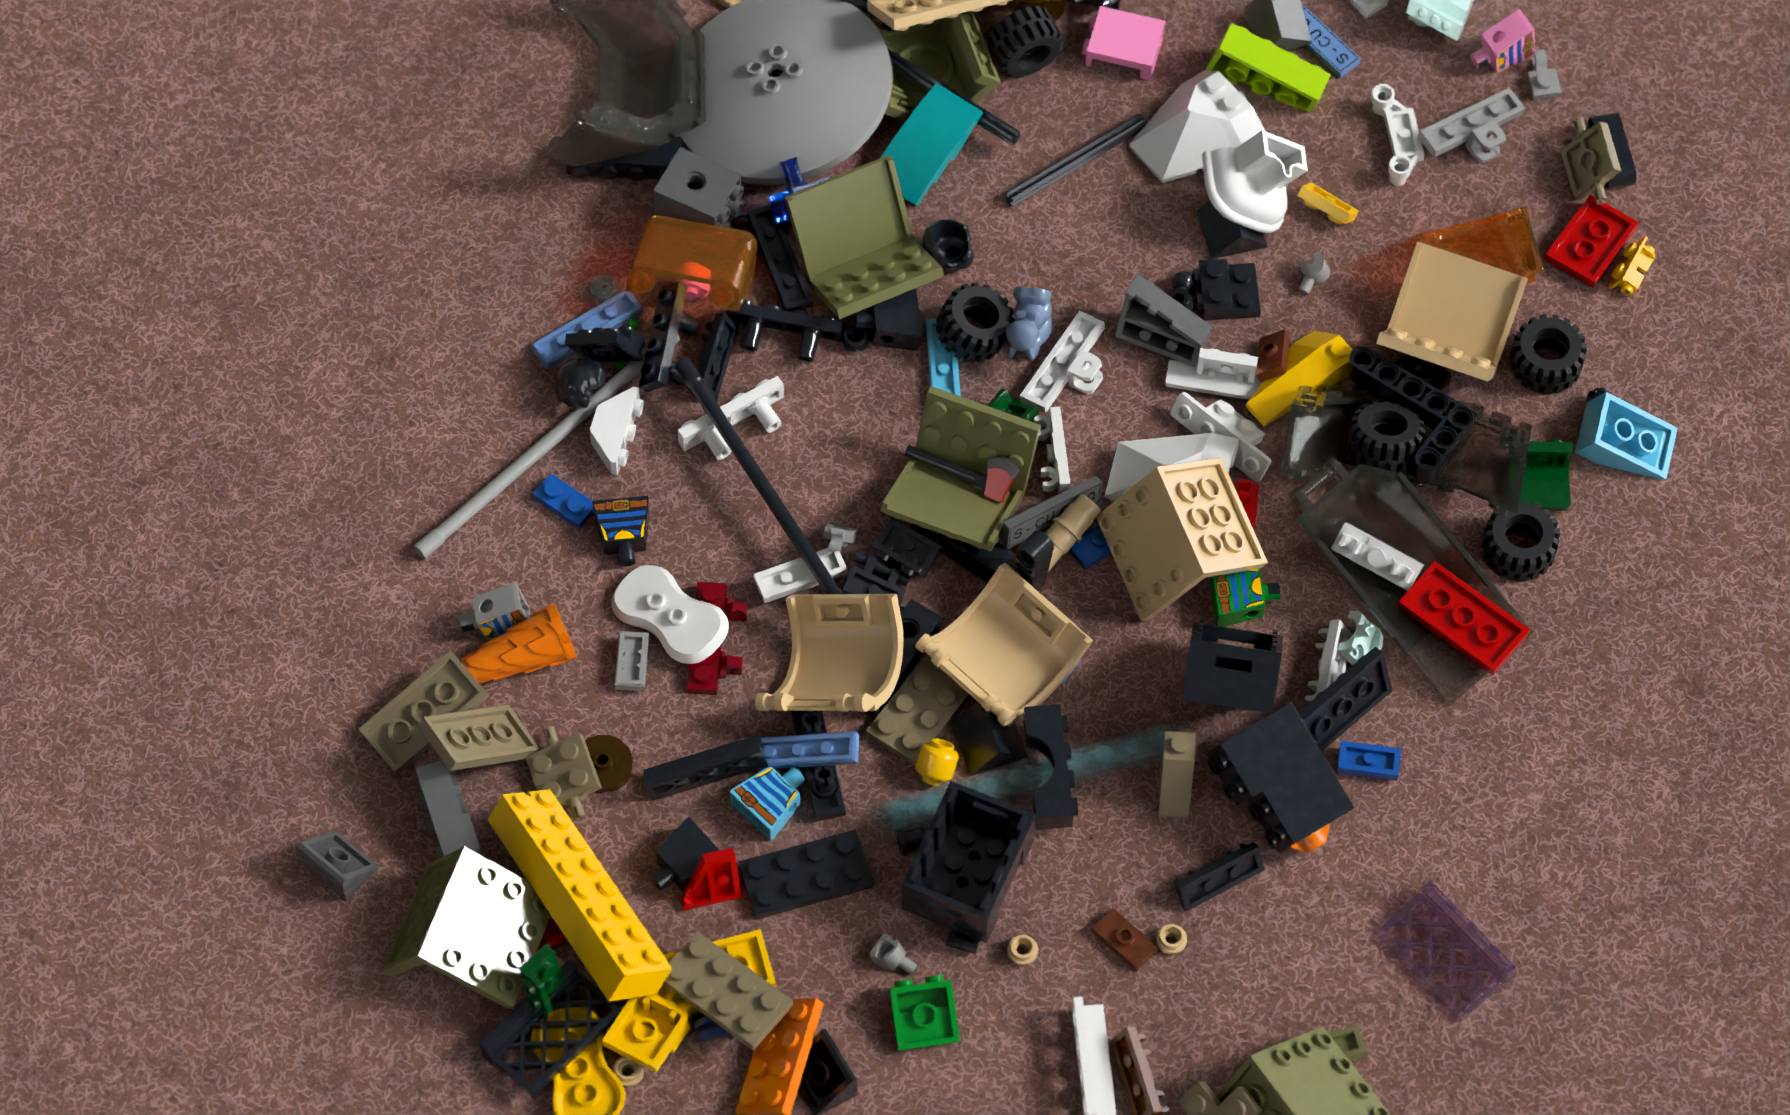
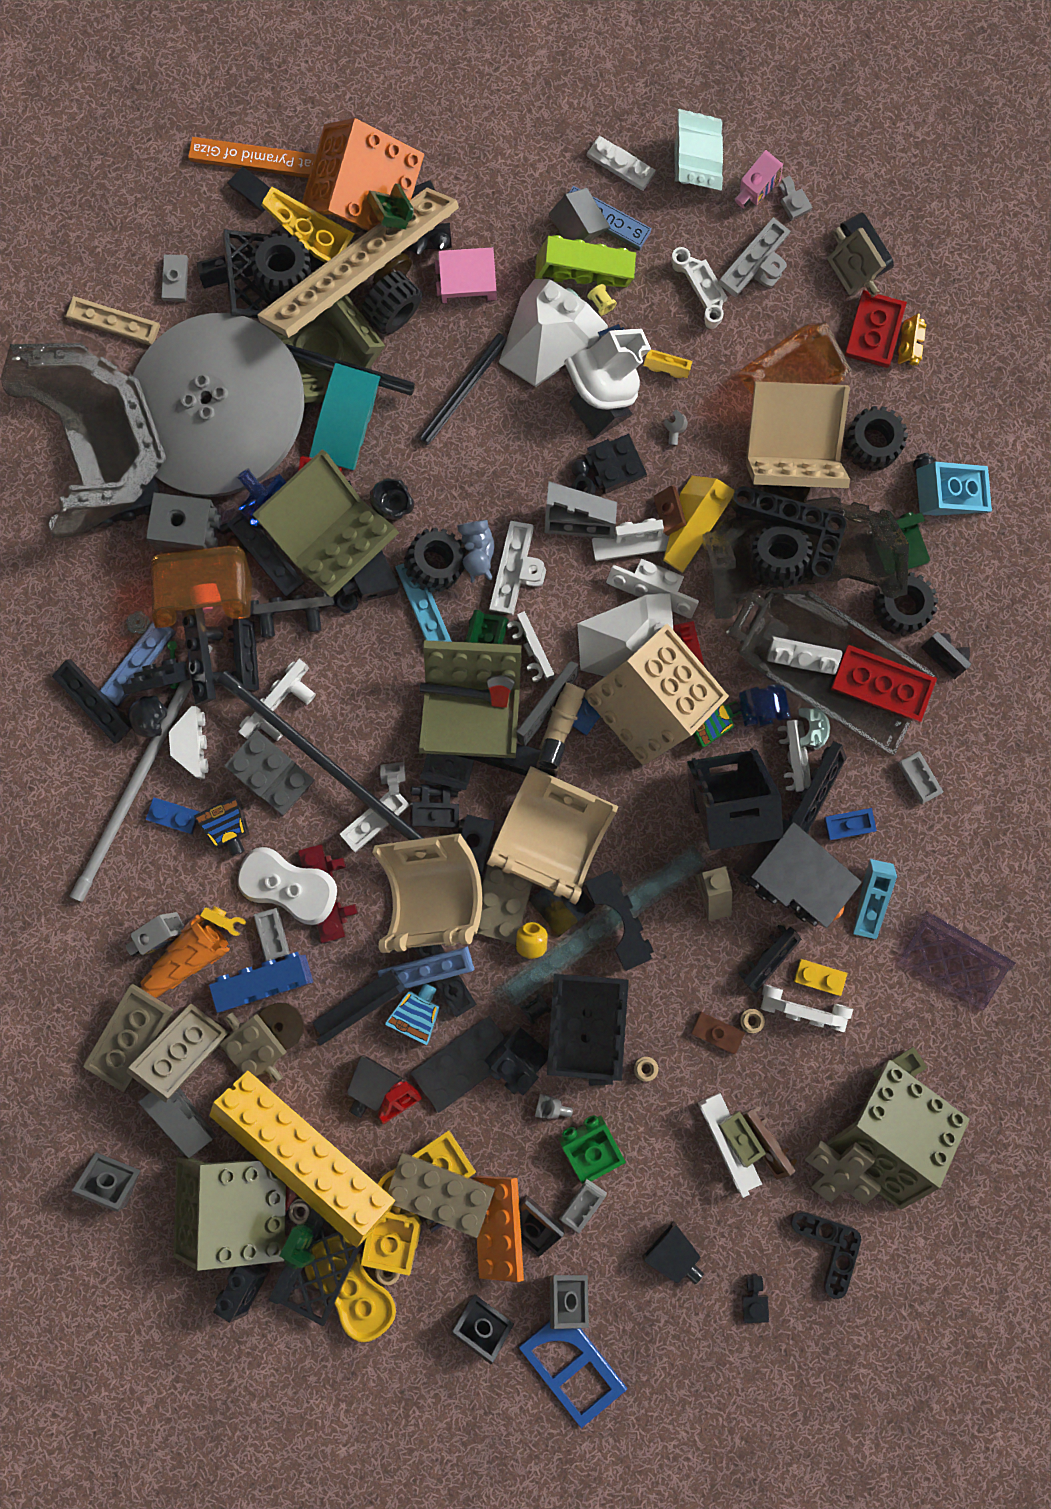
camera: 20 degrees left, 20 degrees up
(451, 1021) = (240, 1292): none -> black plate
(520, 351) = (92, 701): none -> black plate
(576, 621) = (218, 917): none -> yellow plate
(602, 704) = (260, 983): none -> blue wedge
(697, 485) = (269, 772): none -> dark grey bracket
(870, 883) = (517, 1060): none -> black plate
(890, 1072) = (583, 1206): none -> light grey plate
(1109, 1056) = (741, 1139): none -> olive plate
(1225, 936) = (837, 1019): none -> white plate
(1272, 918) = (820, 977): none -> yellow plate
(1274, 114) = (602, 299): none -> light yellow bush
(1309, 593) = (764, 705): none -> clear blue brick
(1368, 850) = (874, 898): none -> medium azure slope
(1473, 737) = (920, 777): none -> light grey plate
(1552, 613) = (952, 660): none -> black tile

